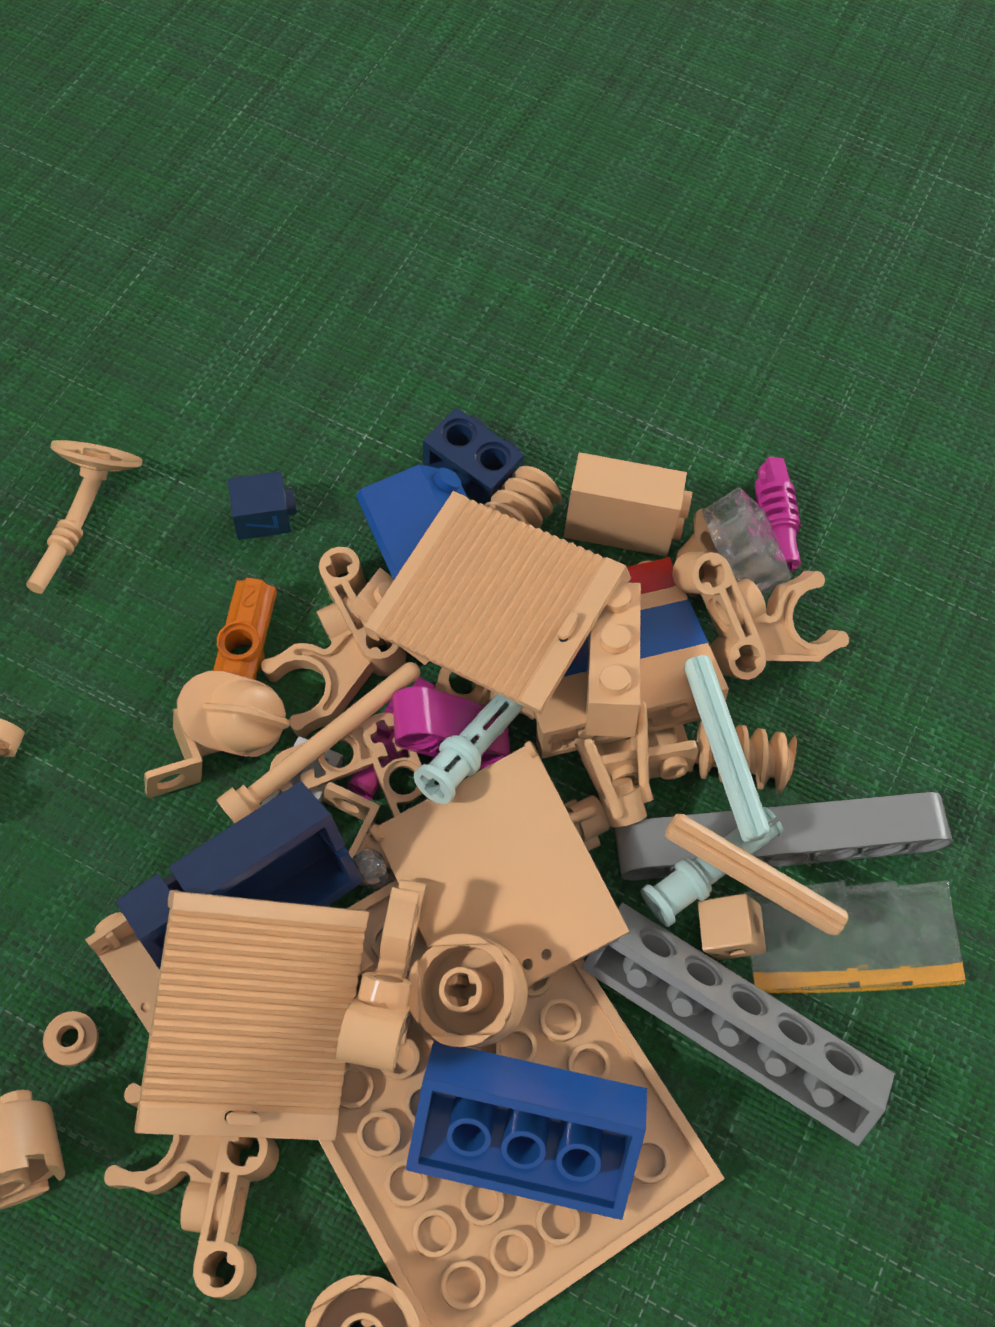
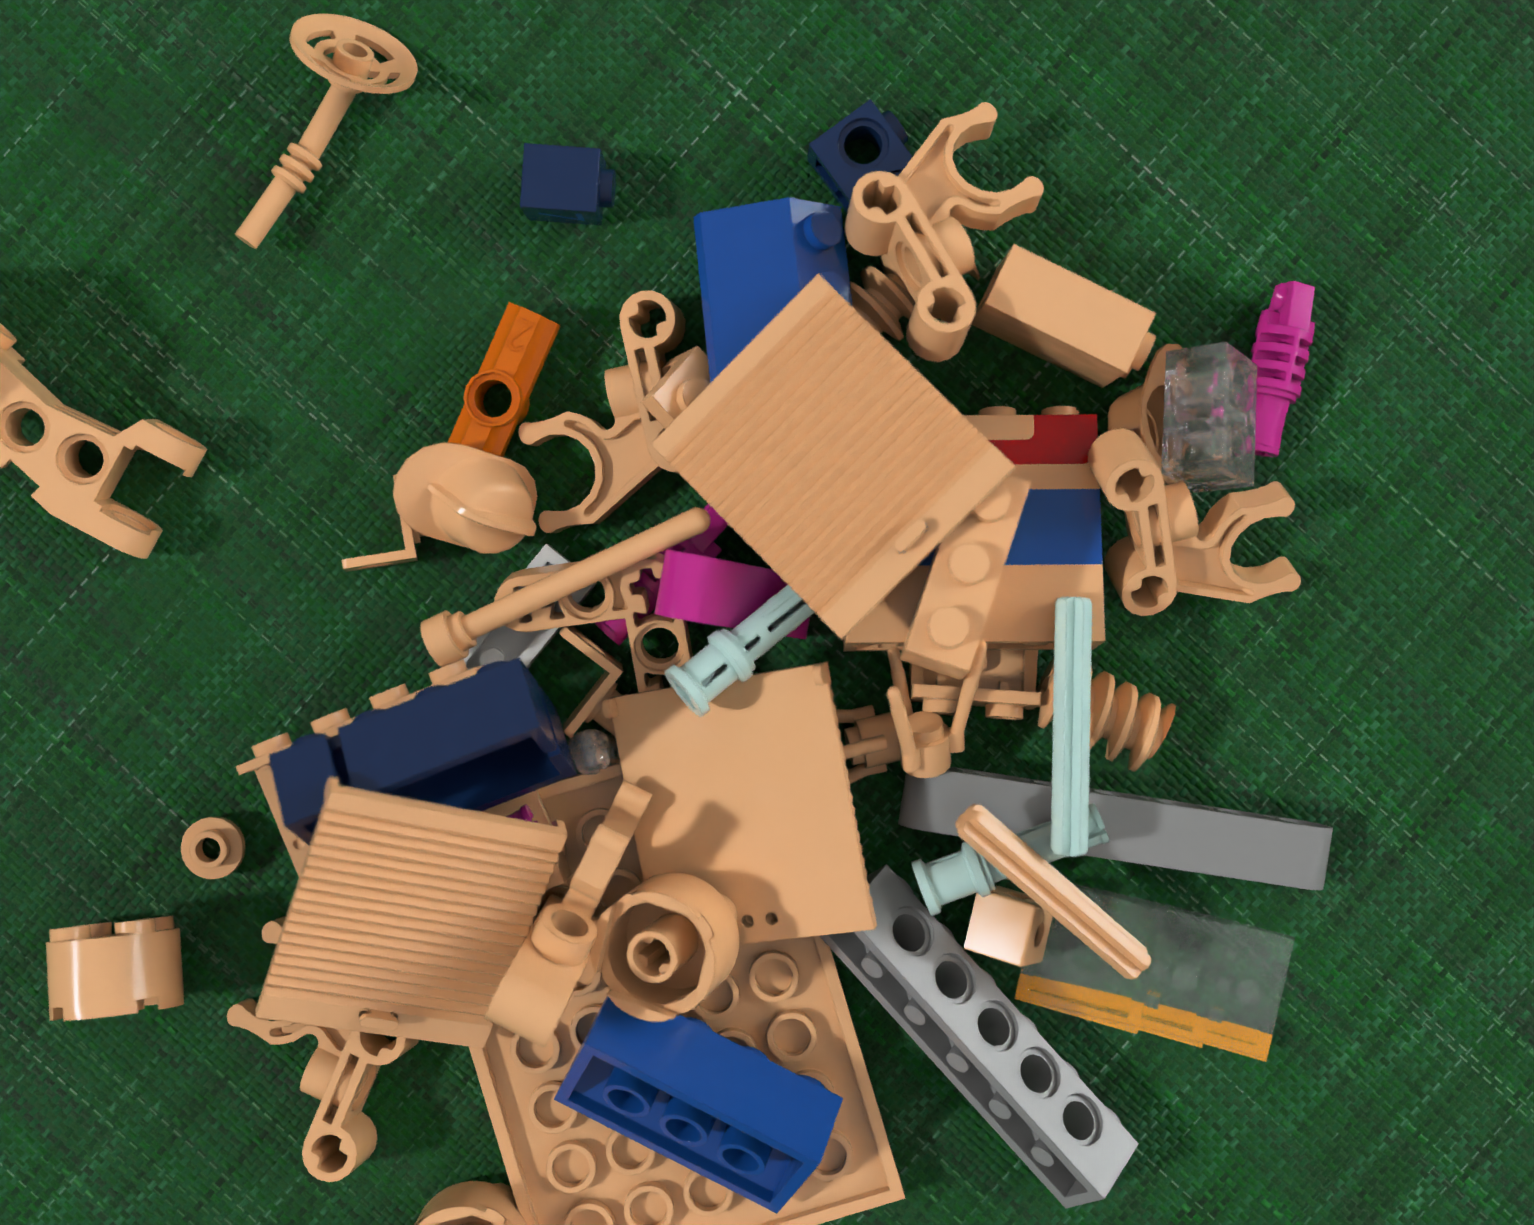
camera: 20 degrees right, 25 degrees up
(522, 462) = (920, 228): none -> light nougat piece

